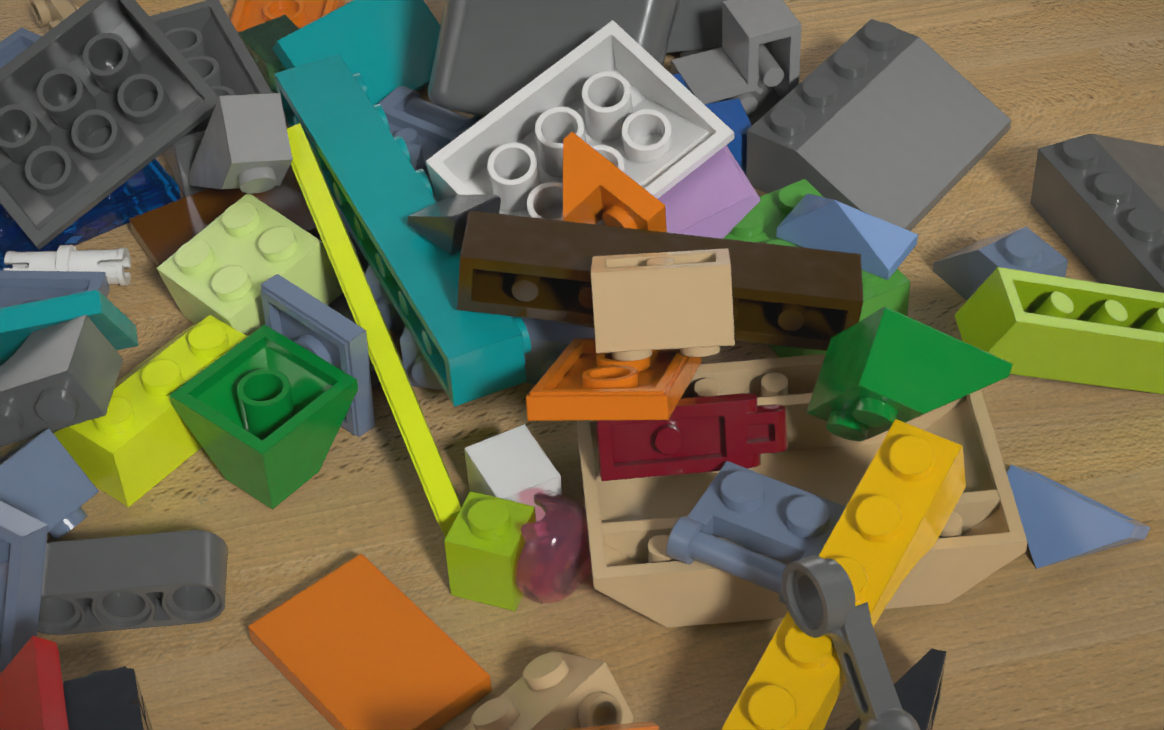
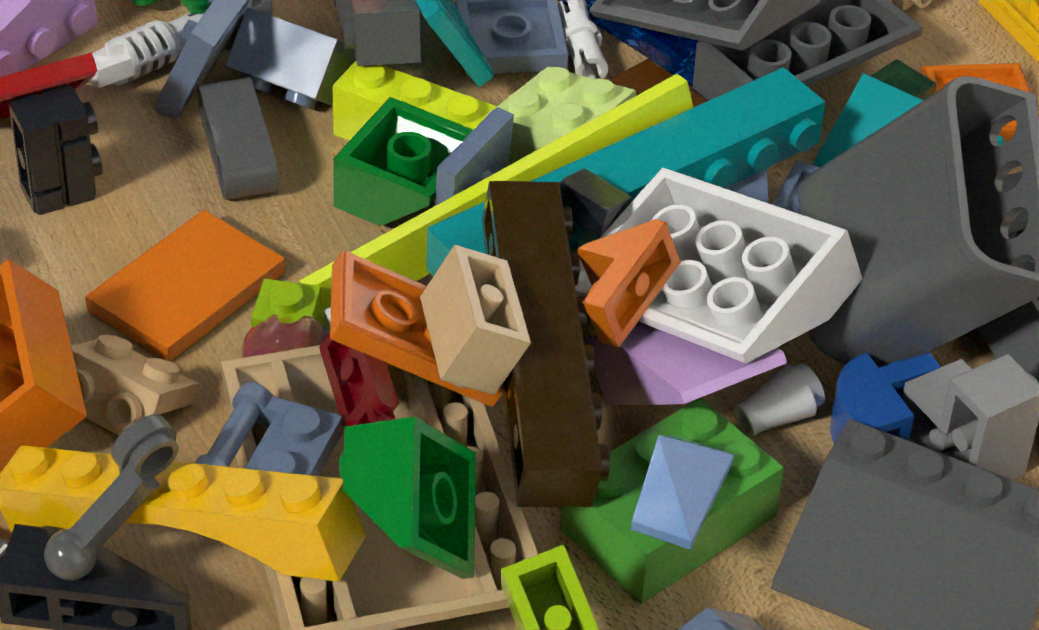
camera: 75 degrees right, 0 degrees up
(243, 145) = (655, 53): light grey slope -> none

